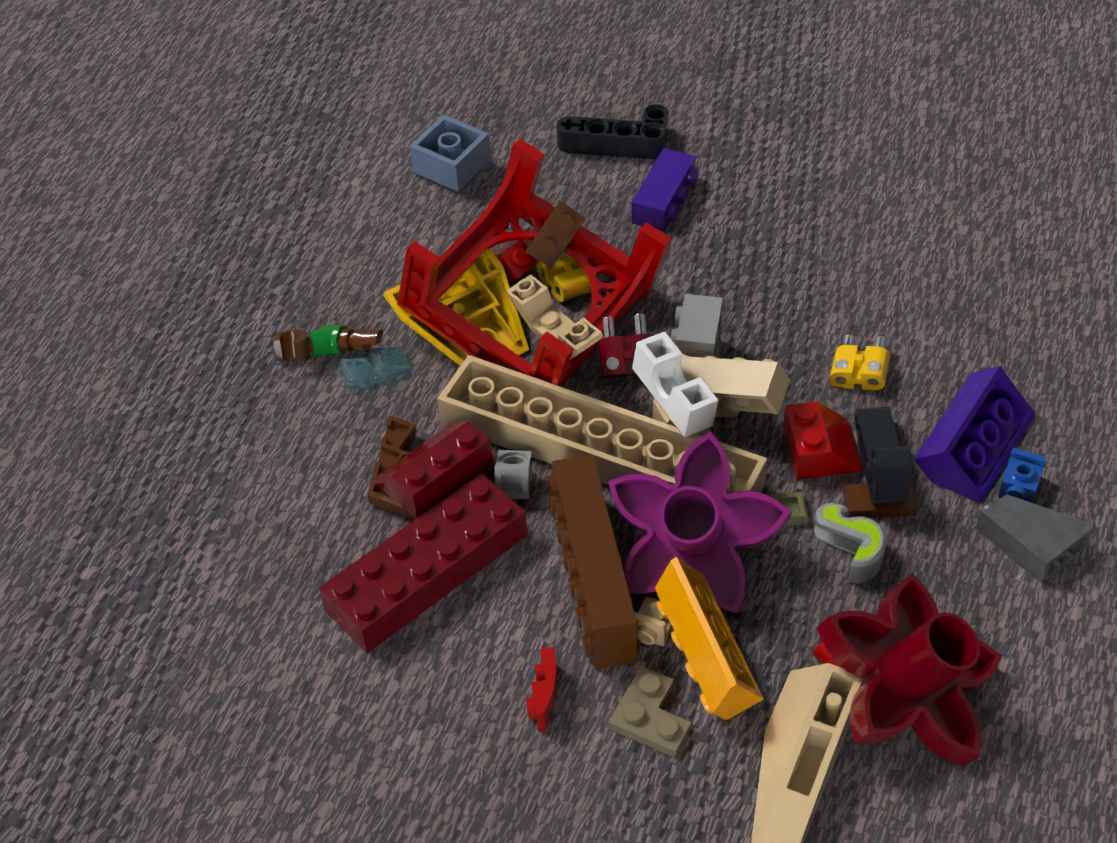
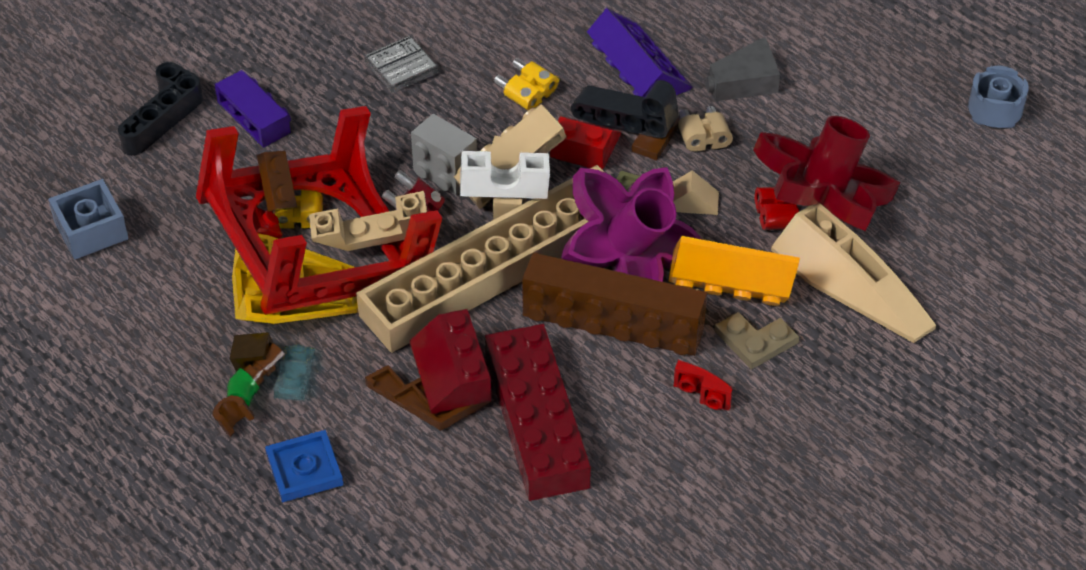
camera: 65 degrees left, 0 degrees up
(268, 423) = (303, 466): none -> blue plate
(368, 319) = (249, 348): none -> dark brown panel
(514, 473) = (491, 318): light grey brick -> none
(808, 260) = (401, 64): none -> tile
(812, 569) = (695, 195): none -> tan slope
(855, 535) = (689, 156): light grey animal -> none
(917, 539) = (700, 132): none -> tan piece
(1022, 475) = (692, 54): blue brick -> none

